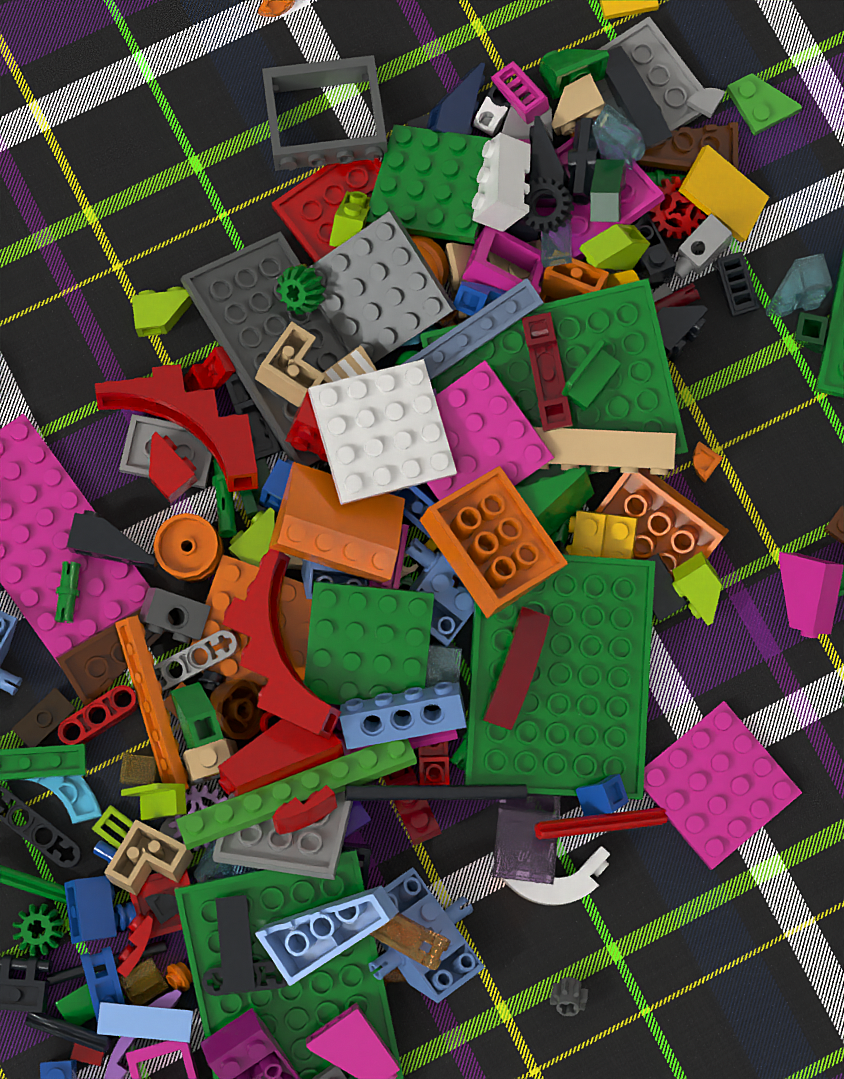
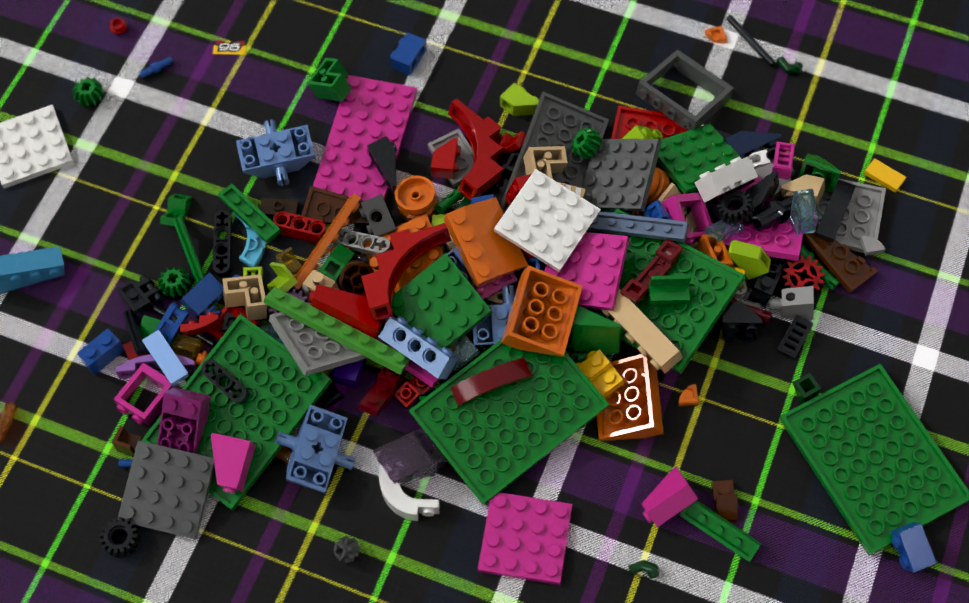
camera: 55 degrees right, 15 degrees down
(67, 592) = (347, 166): green pin -> none
(235, 944) = (235, 360): black tile -> none
(295, 815) = (322, 335): red slope -> none
(319, 934) = (273, 392): light blue wedge -> none
(408, 939) = (305, 432): clear orange plate -> none
(435, 792) = (393, 394): black piece -> none
(600, 823) = (449, 488): red axle -> none
(602, 797) = (465, 479): blue panel -> none
(606, 190) = (771, 228): dark green slope -> none
(665, 596) = (599, 428): black slope -> none
(700, 584) = (618, 439): lime slope -> none
(724, 192) = (833, 290): yellow tile -> none
(761, 103) = (900, 275): bright green wing -> none
(802, 287) = (822, 362): clear light blue slope -> none

